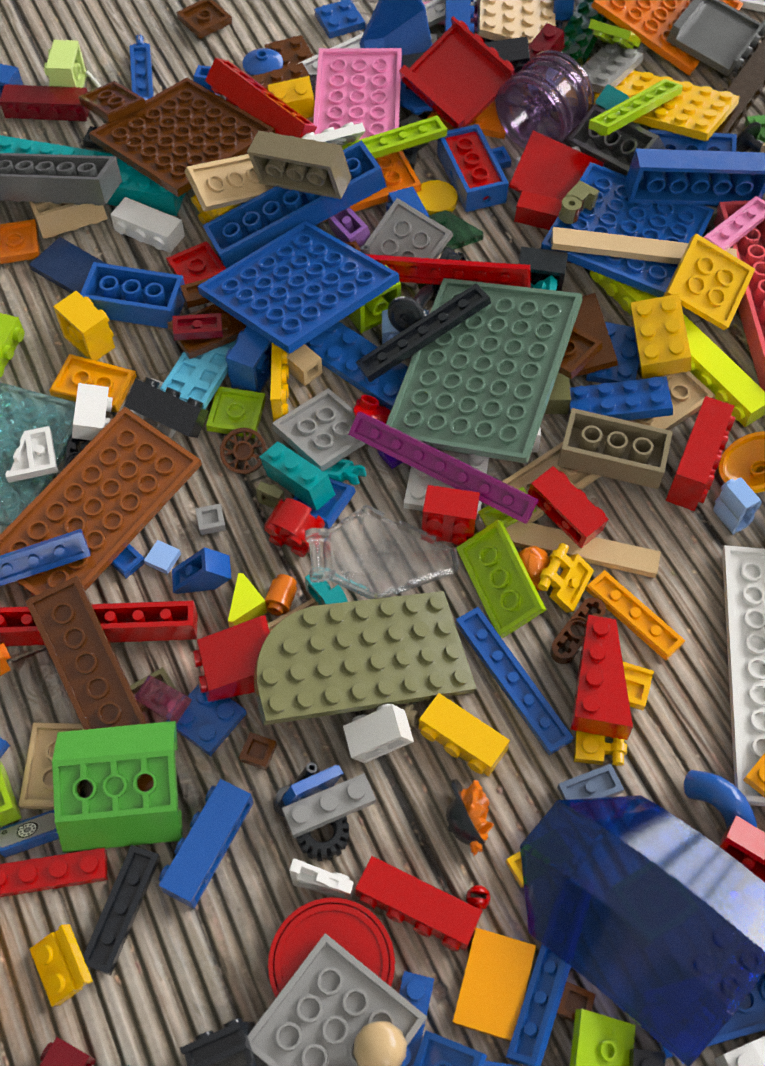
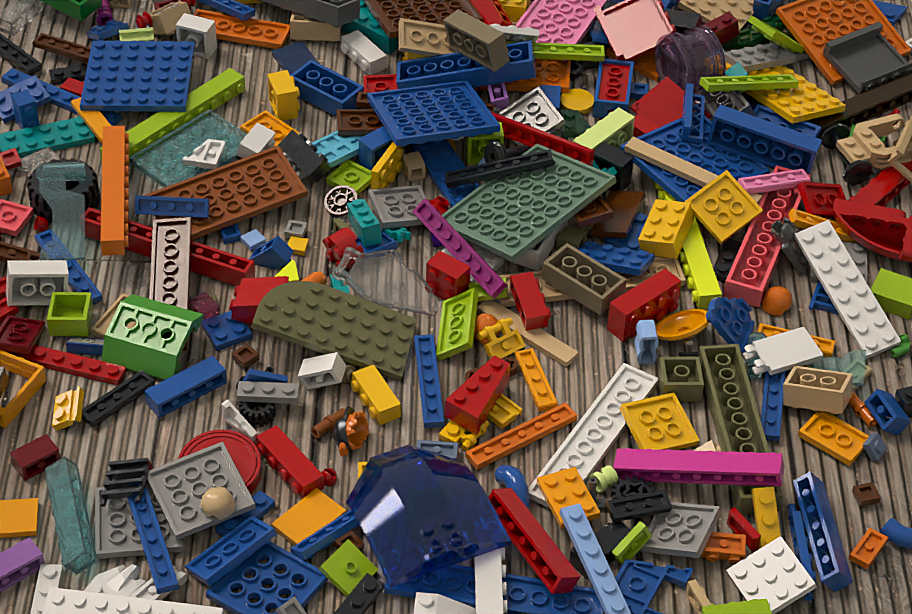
camera: 25 degrees right, 15 degrees down
(197, 326) = (352, 116): dark red plate -> none
(225, 540) = (298, 245): none -> yellow tile
(430, 809) = (327, 424): none -> dark orange pin
(510, 230) = (613, 129): none -> yellowish green brick
(577, 199) = (662, 128): olive leg -> none
(592, 170) = (688, 117): none -> blue fence
(674, 714) = (520, 436): none -> orange plate
(735, 346) = (726, 259): none -> black plate

